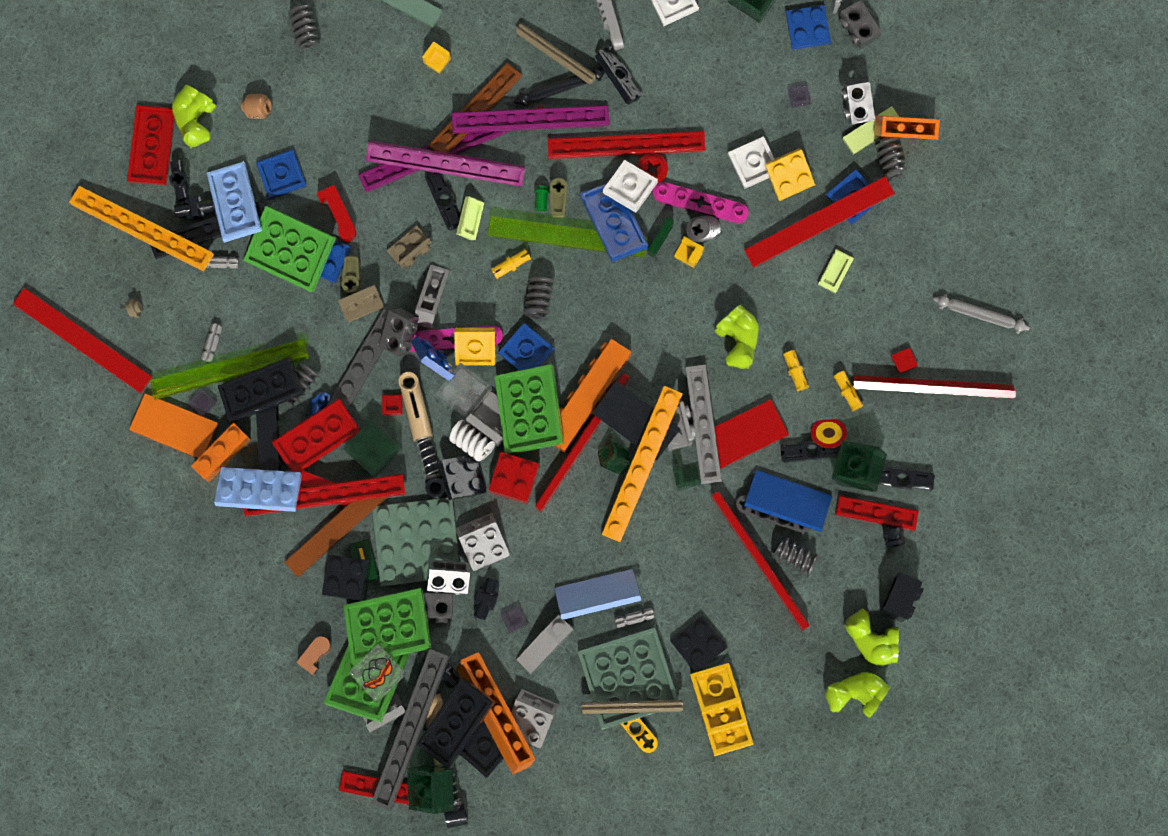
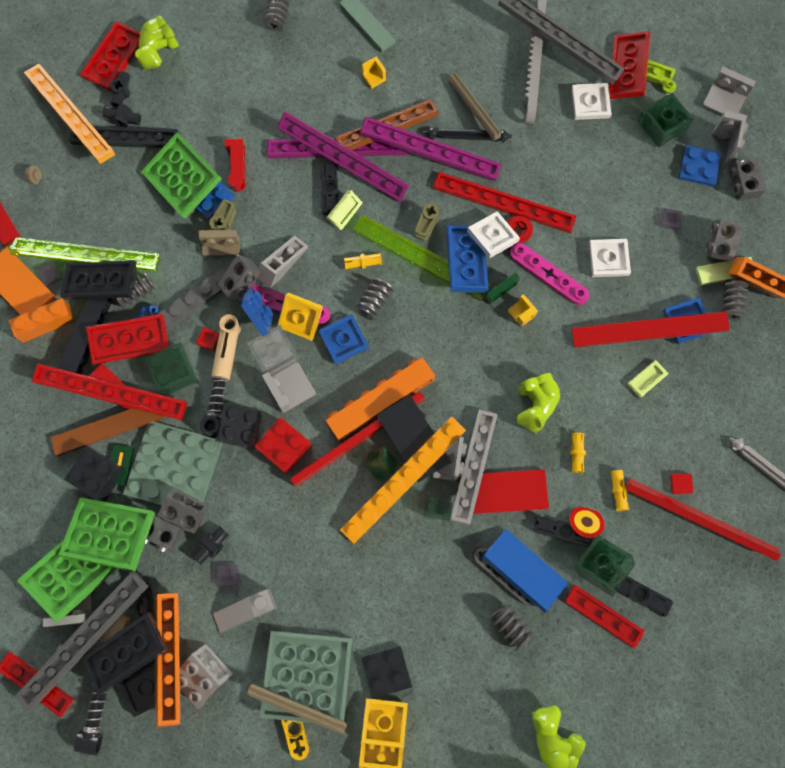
camera: 20 degrees right, 5 degrees down
(211, 342) = (82, 227): light grey axle -> none
(223, 262) = (122, 166): light grey axle -> none
(234, 201) = (154, 122): light blue tile -> none
(256, 106) = (210, 56): medium nougat head -> none
(258, 489) = (53, 363): light blue plate -> none
(281, 174) = (205, 117): blue tile -> none
(318, 648) = (34, 531): nougat leg -> none
(377, 673) = (74, 574): clear tile -> none
(409, 248) = (283, 215): dark tan bracket -> none
(430, 789) = (73, 708): clear green brick -> none
(470, 441) = (260, 397): white piece -> none
(482, 542) = (230, 491): bracket -> none
(529, 409) = (322, 390): bright green plate -> none
(541, 198) = (414, 214): green pin -> none
(597, 594) = (311, 584): light blue tile -> none
(611, 65) = (522, 153): black piece -> none
(634, 617) = (337, 620): light grey axle -> none
(703, 228) = (542, 294): flat silver piece -> none
(760, 561) = (476, 619): red tile -> none
(789, 174) = (638, 279): yellow plate -> none
(893, 537) = (612, 647): black wheel -> none
(901, 597) = (599, 712): black brick -> none

